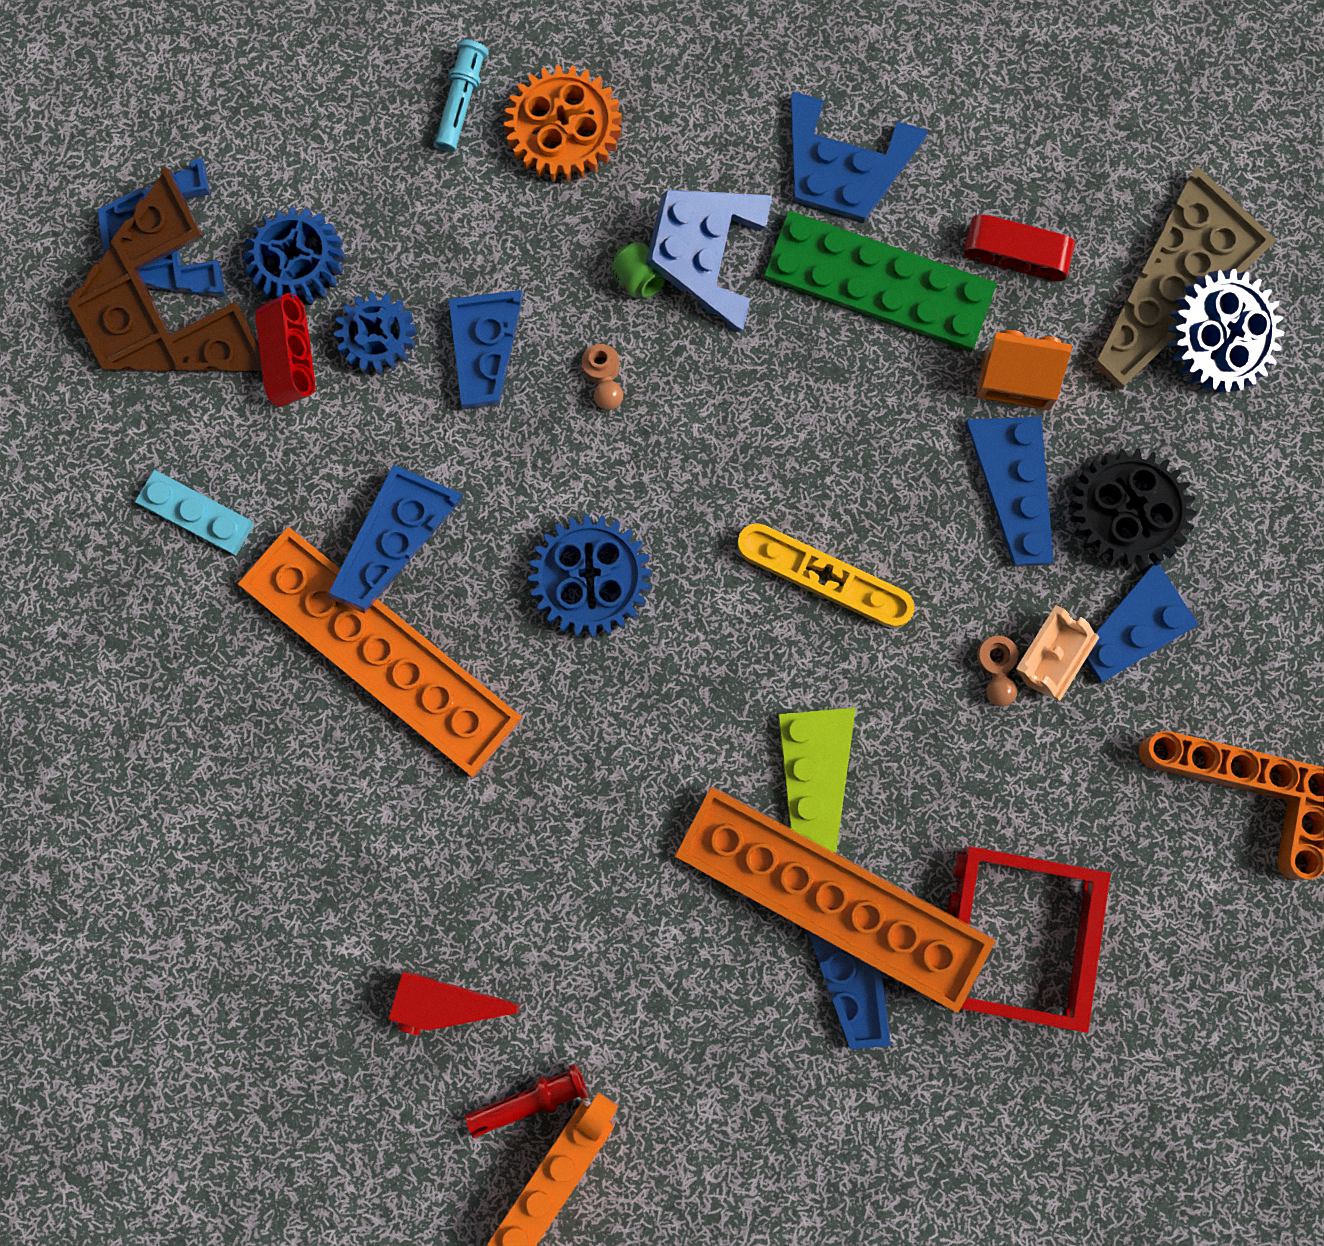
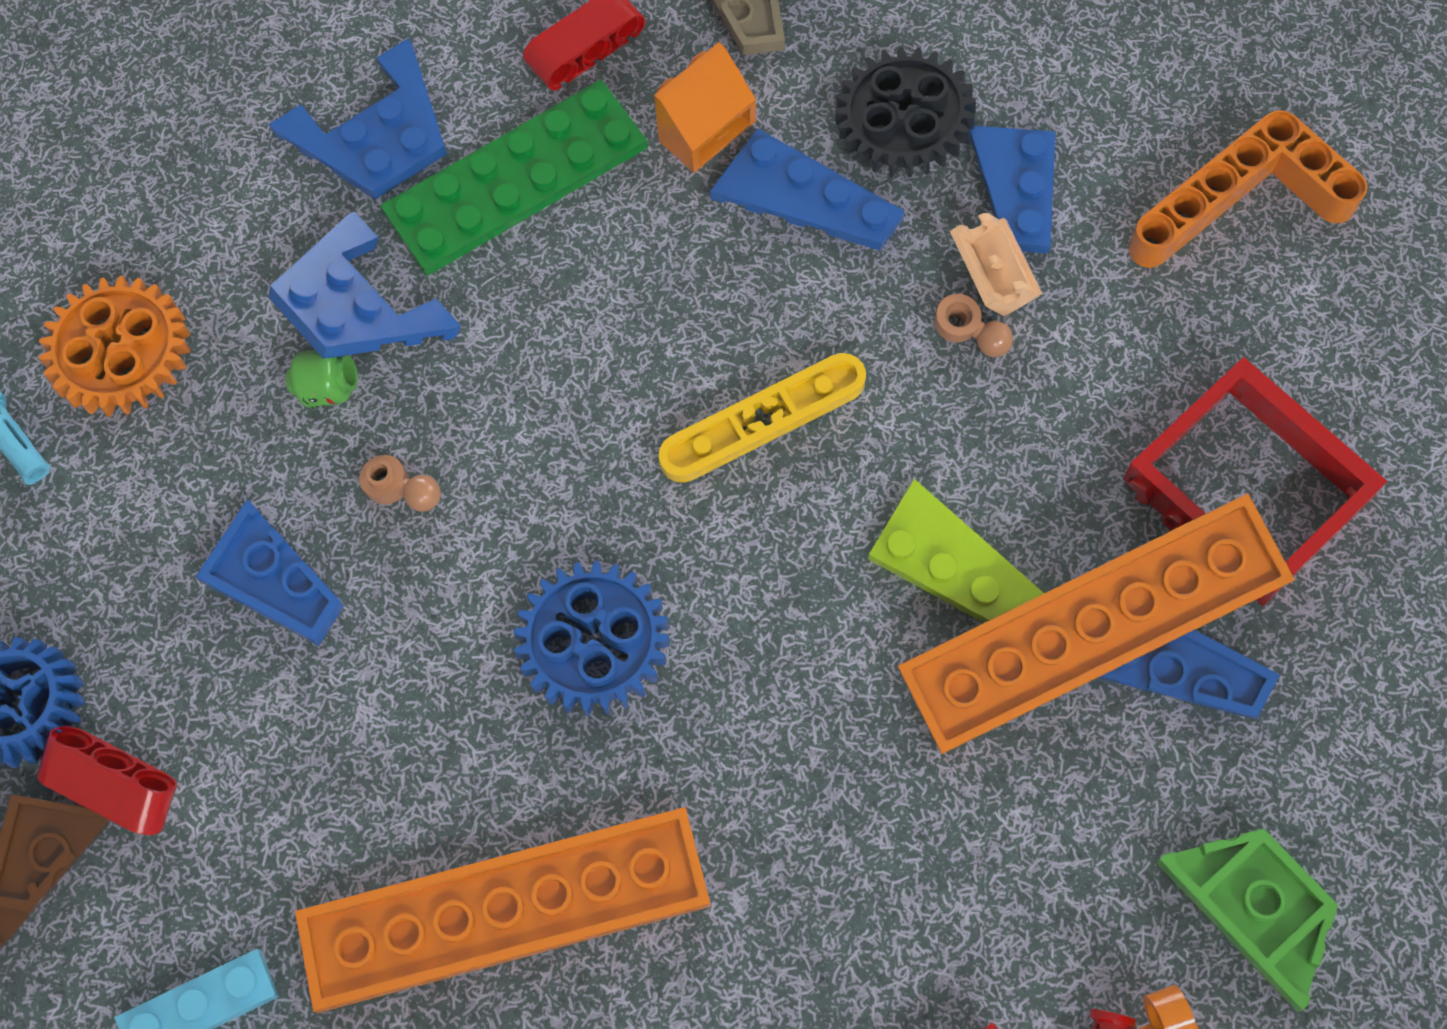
camera: 50 degrees left, 10 degrees down
(379, 317) = (150, 664): blue gear -> none
(392, 533) = (391, 803): blue wing -> none
(722, 1131) = (1260, 906): none -> bright green wing

